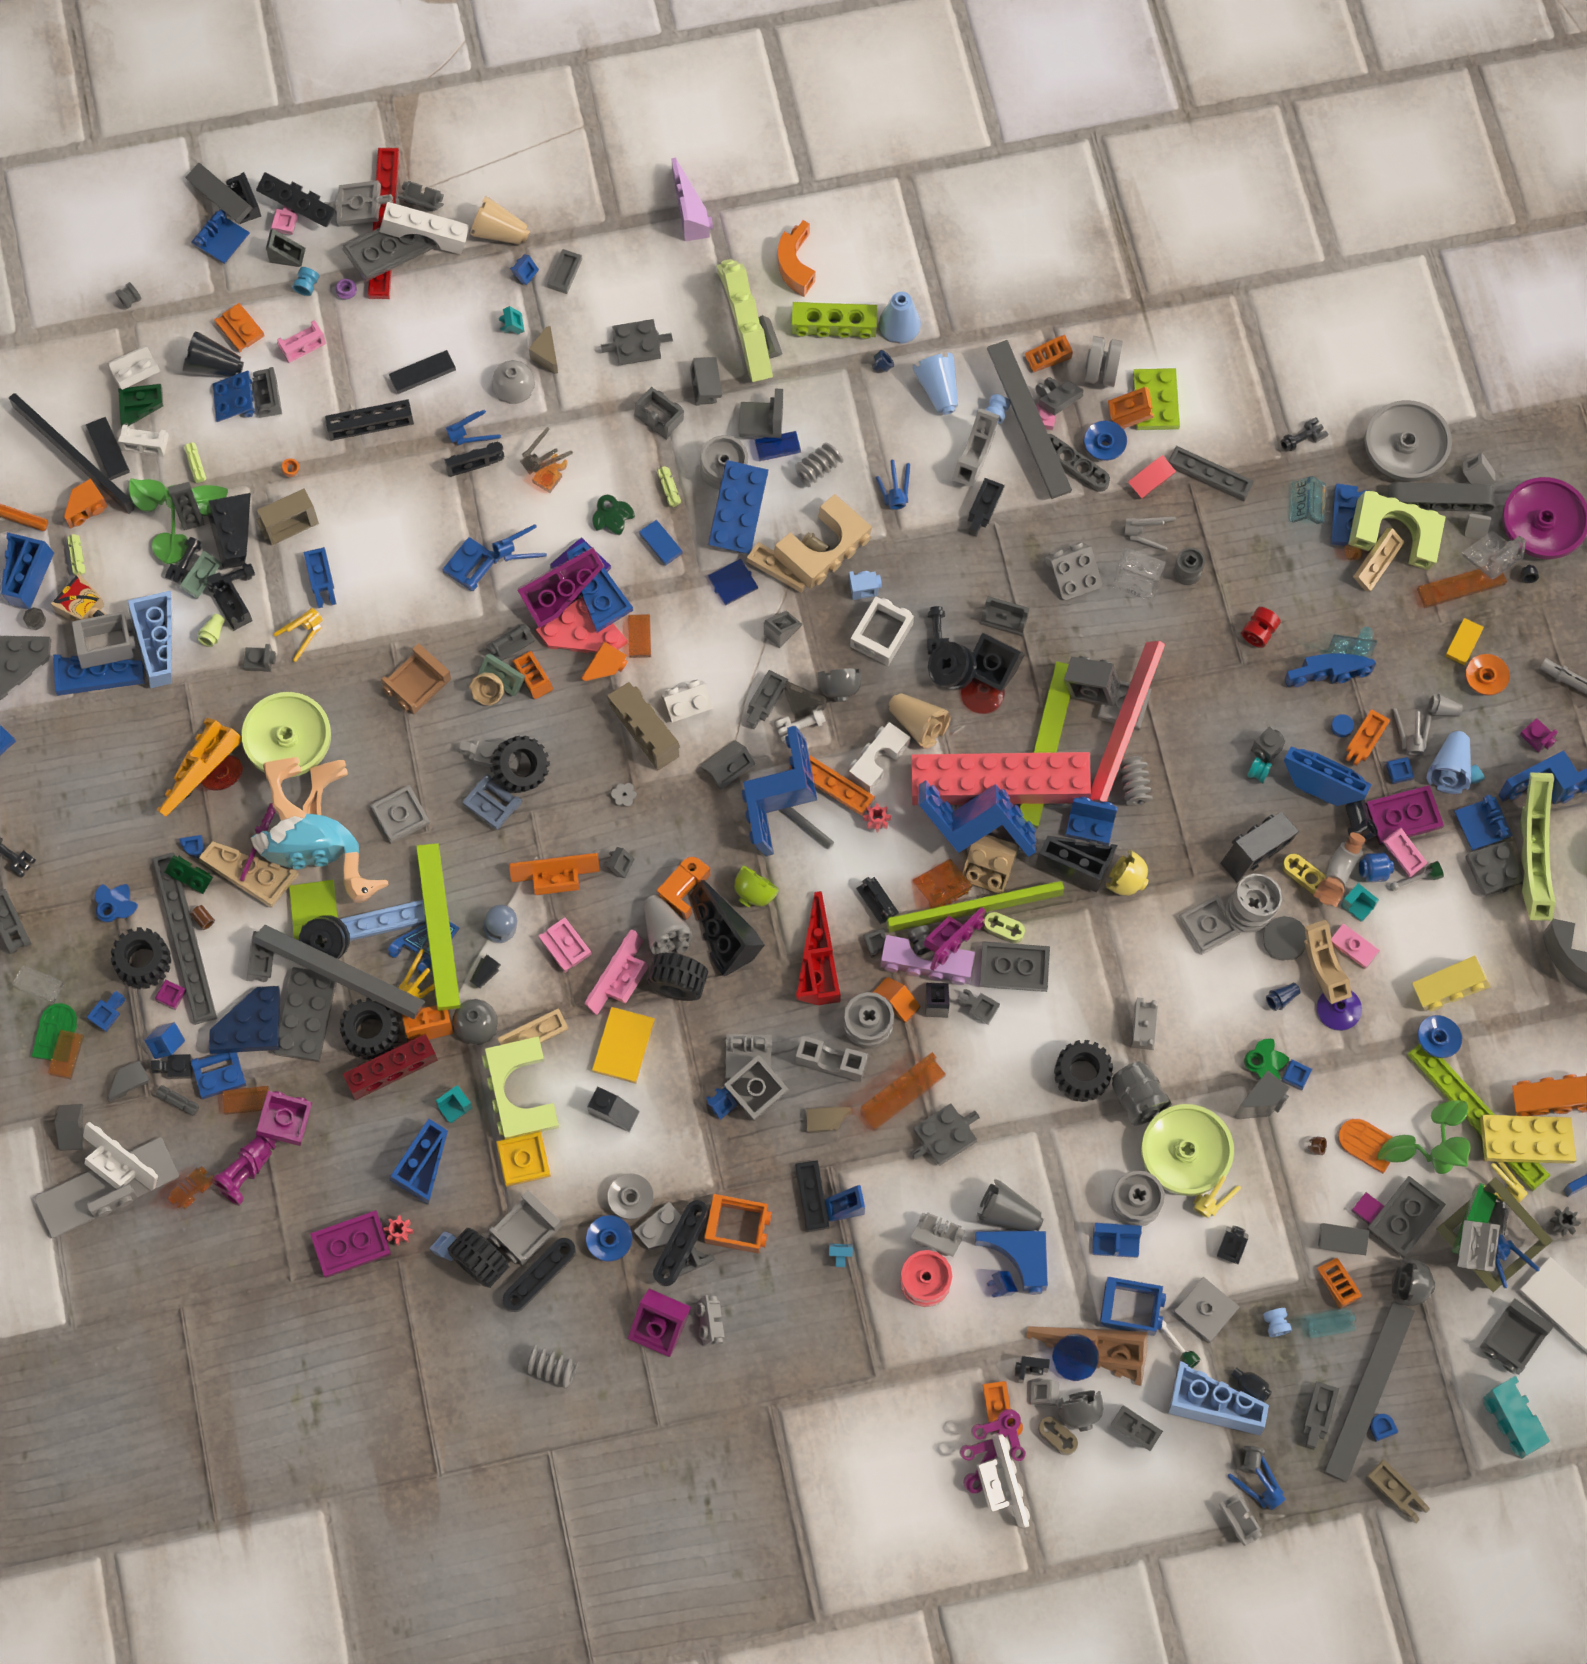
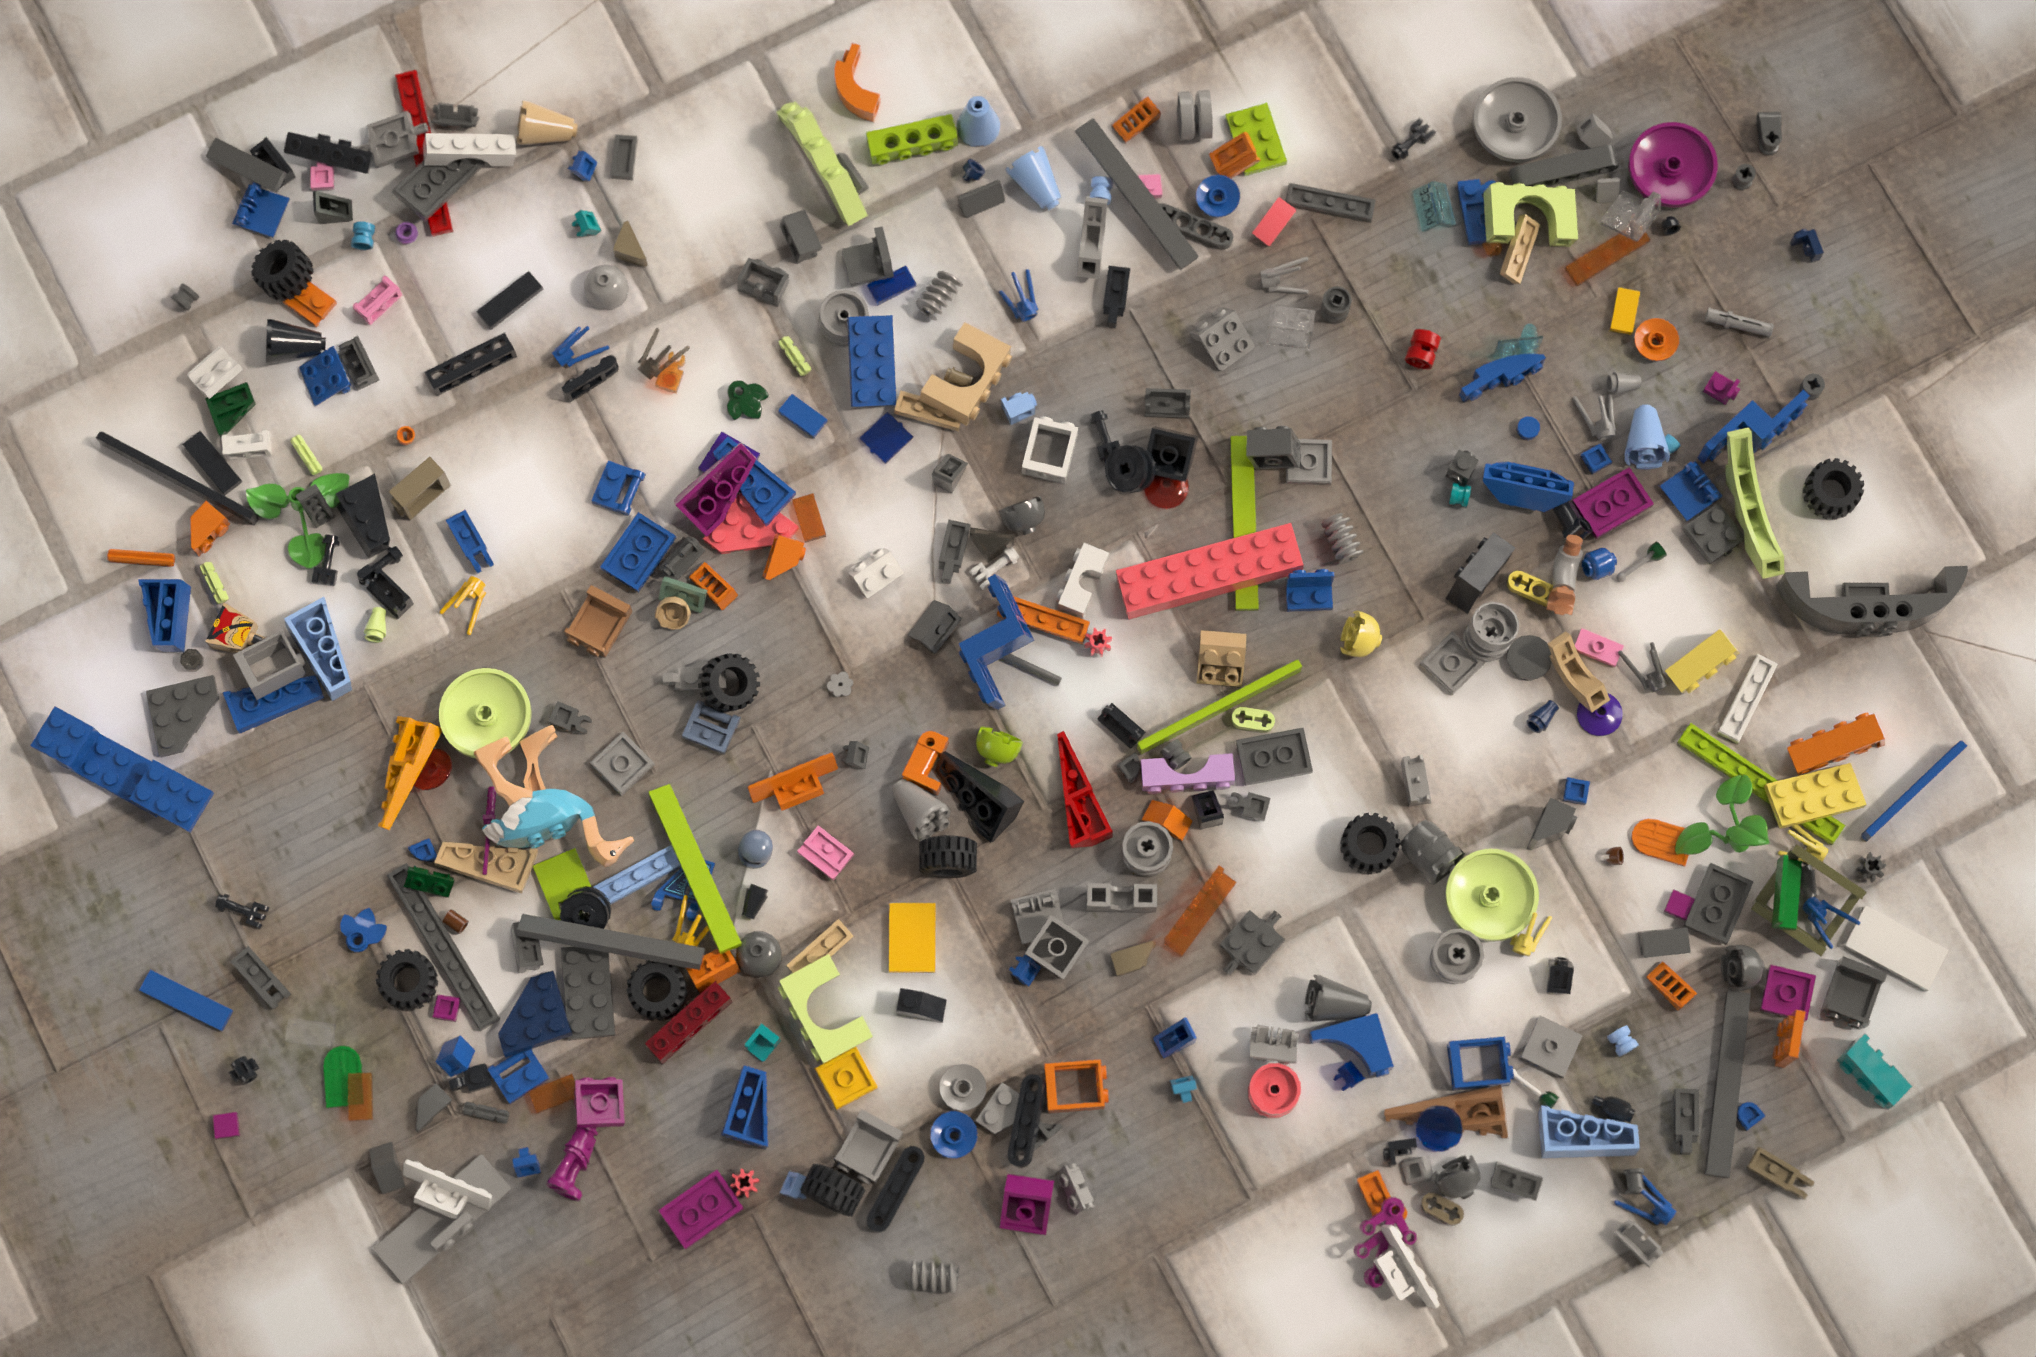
camera: 15 degrees left, 5 degrees up
(105, 1013) = (387, 1045): blue plate -> none
(184, 1200) = (538, 1191): clear orange hinge -> none
(196, 579) = (346, 571): sand green plate -> none
(199, 1157) = (526, 1163): none -> blue tile
(222, 292) = (282, 270): none -> black tyre
(259, 658) = (433, 641): dark grey bracket -> none
(361, 758) = (567, 717): none -> dark grey plate
(471, 626) = (638, 552): none -> blue plate
(505, 547) = (648, 463): blue plant -> none
(620, 975) = (890, 869): bright pink bracket -> none
(636, 342) = (718, 213): dark grey plate -> none
(644, 725) = (840, 609): dark tan wedge -> none
(692, 211) = (736, 61): lavender wedge -> none
(812, 1196) = (1139, 1038): black tile -> none
(883, 389) = (981, 199): none -> dark grey slope
(920, 718) = (1112, 530): tan cone -> none
(943, 884) = (1181, 692): clear orange hinge -> none
(950, 935) = (1203, 745): magenta bracket -> none
(977, 817) = (1198, 618): blue bracket -> none
(1056, 396) = (1160, 161): dark grey hinge -> none
(1076, 861) = (1306, 635): black wedge -> none
(1116, 1240) = (1446, 1002): blue panel -> none
(1126, 721) = (1317, 480): coral tile -> none
(1268, 1059) = (1546, 783): green plate -> none
(1331, 1323) = (1673, 1027): clear light blue hinge -> none
(1359, 902) = (1592, 603): teal panel -> none
(1367, 736) = (1555, 433): orange hinge -> none
(1402, 989) = (1656, 679): none -> dark grey plant
(1404, 852) = (1622, 541): bright pink plate -> none
(1441, 1357) = (1790, 1038): none -> orange plate
(1445, 1030) = (1710, 710): blue dish -> none
(1451, 1320) = (1787, 991): none -> magenta plate
(1478, 1245) = (1797, 916): light grey slope -> none
(1487, 1030) = (1747, 698): none -> white tile

